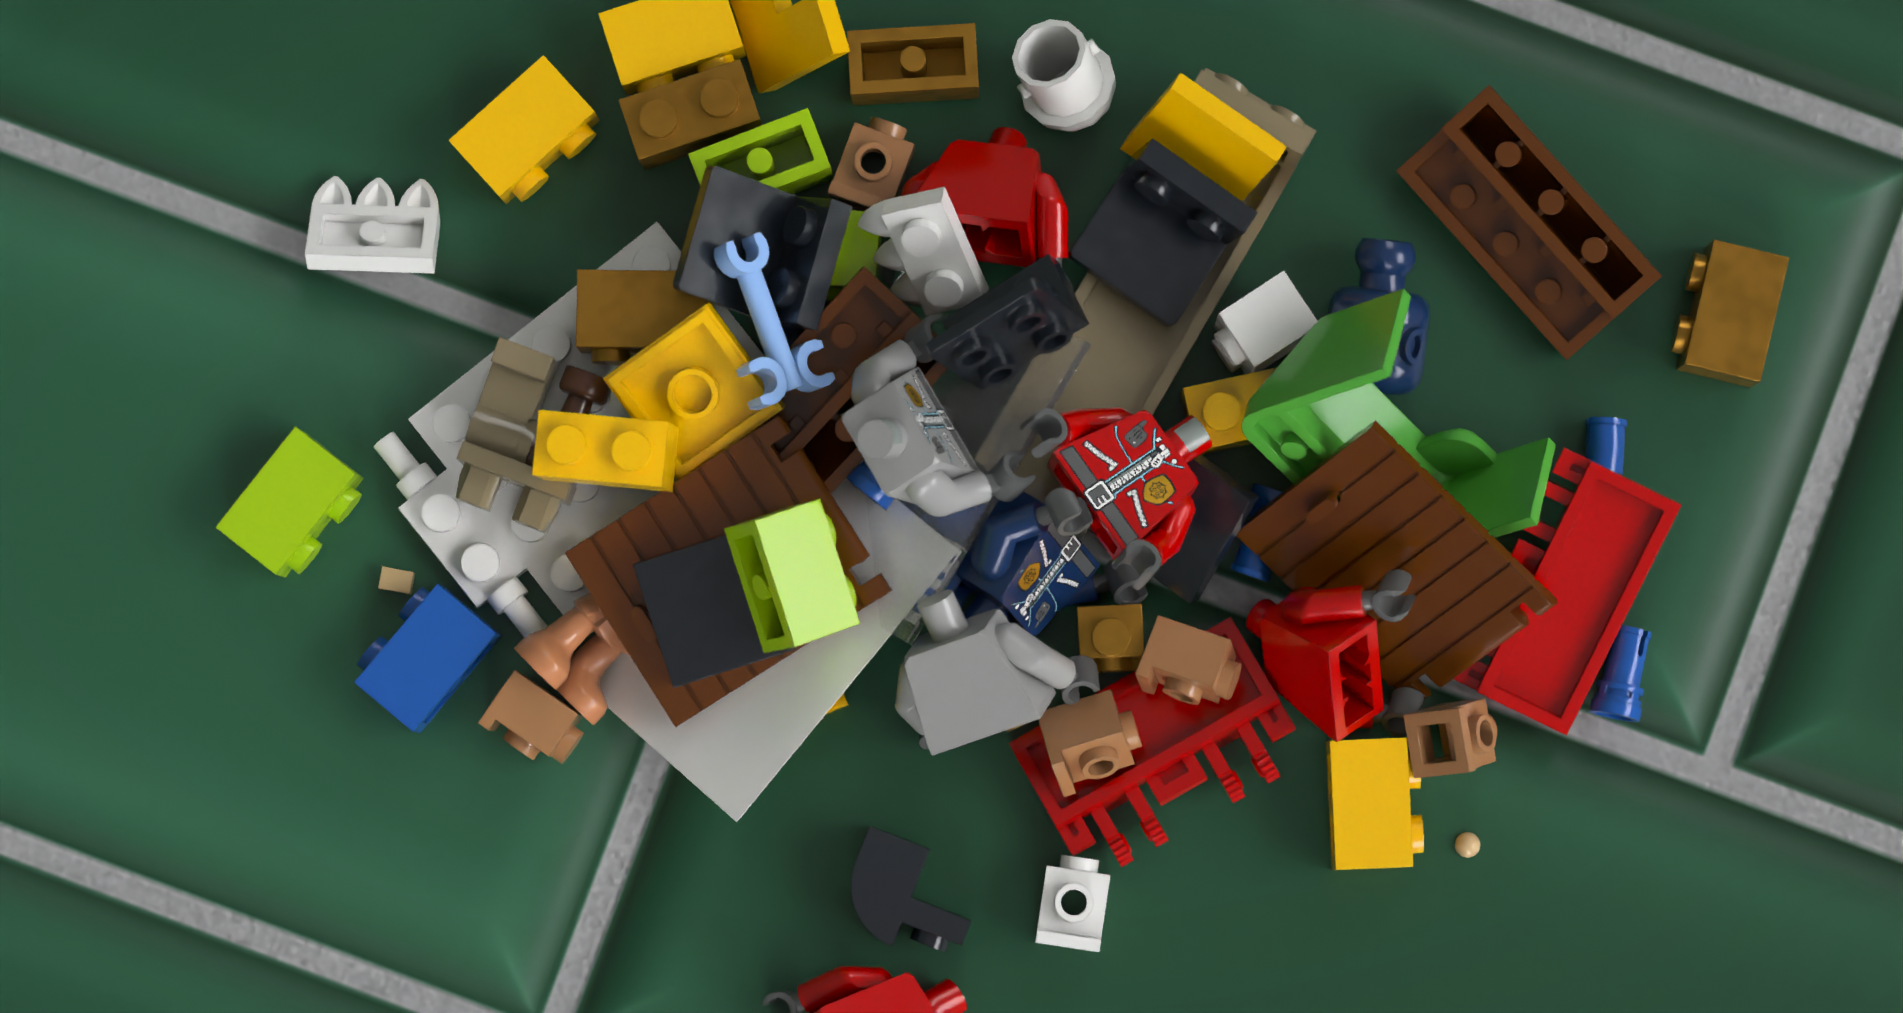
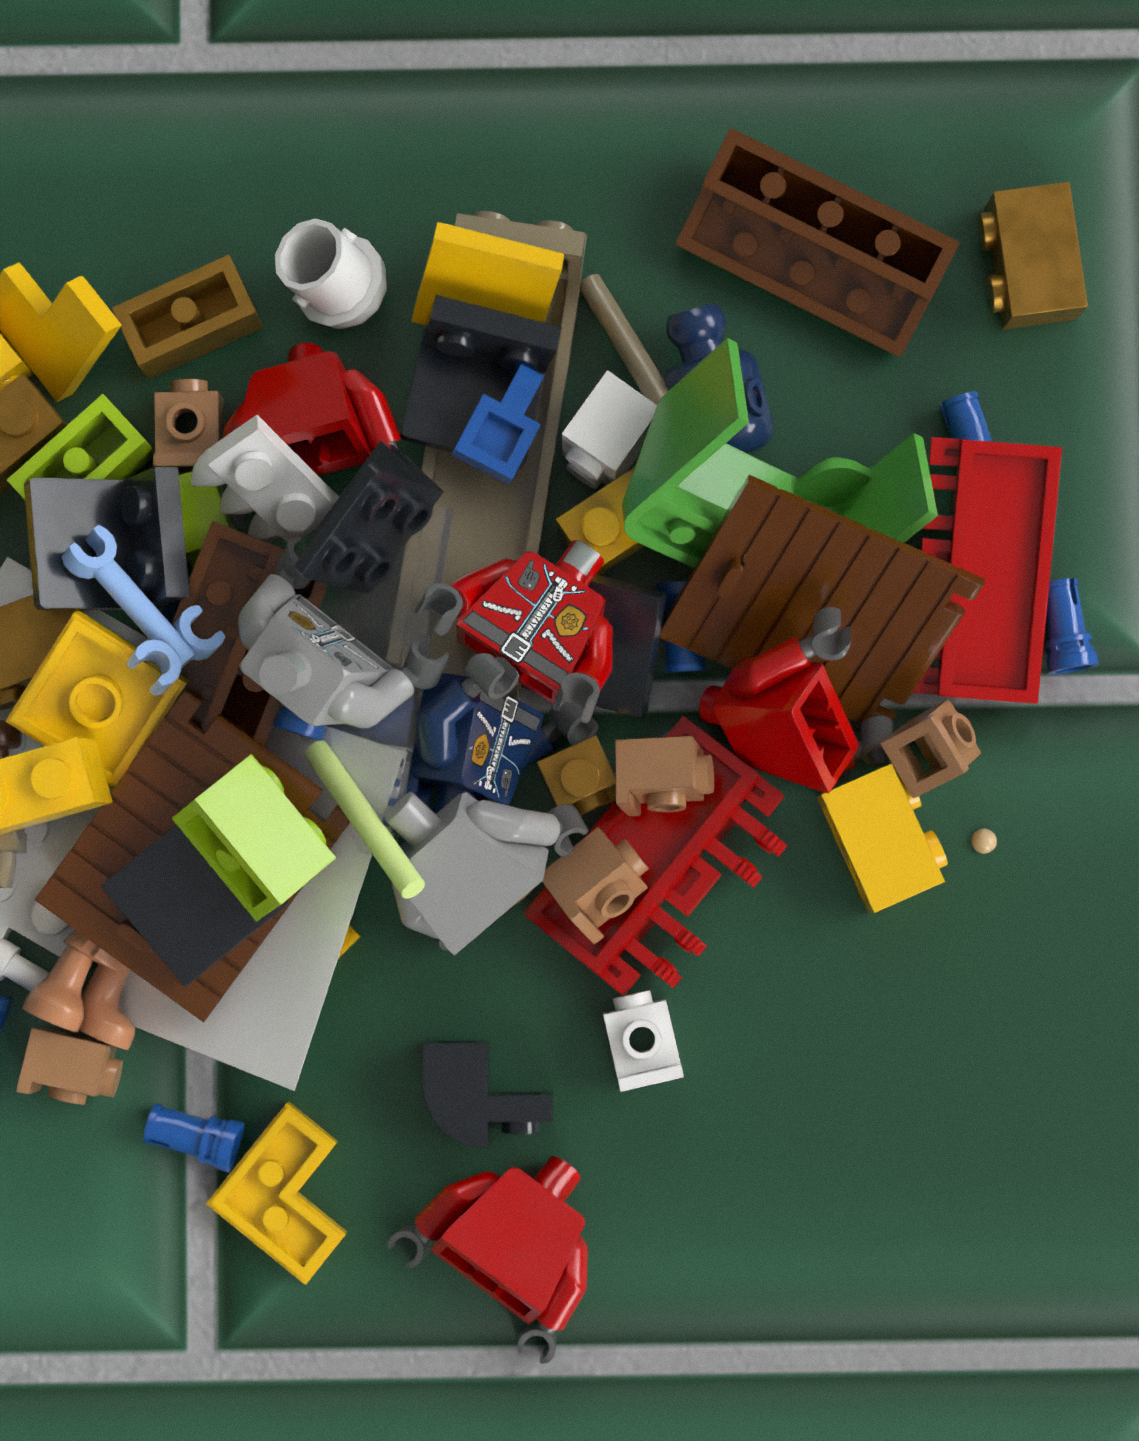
camera: 30 degrees left, 0 degrees up
(635, 838) = (210, 1140): none -> blue pin
(665, 913) = (264, 1197): none -> yellow tile
(898, 598) = (364, 819): none -> yellowish green bar
(1162, 287) = (500, 431): none -> blue plate
(1313, 242) = (623, 338): none -> dark tan bar

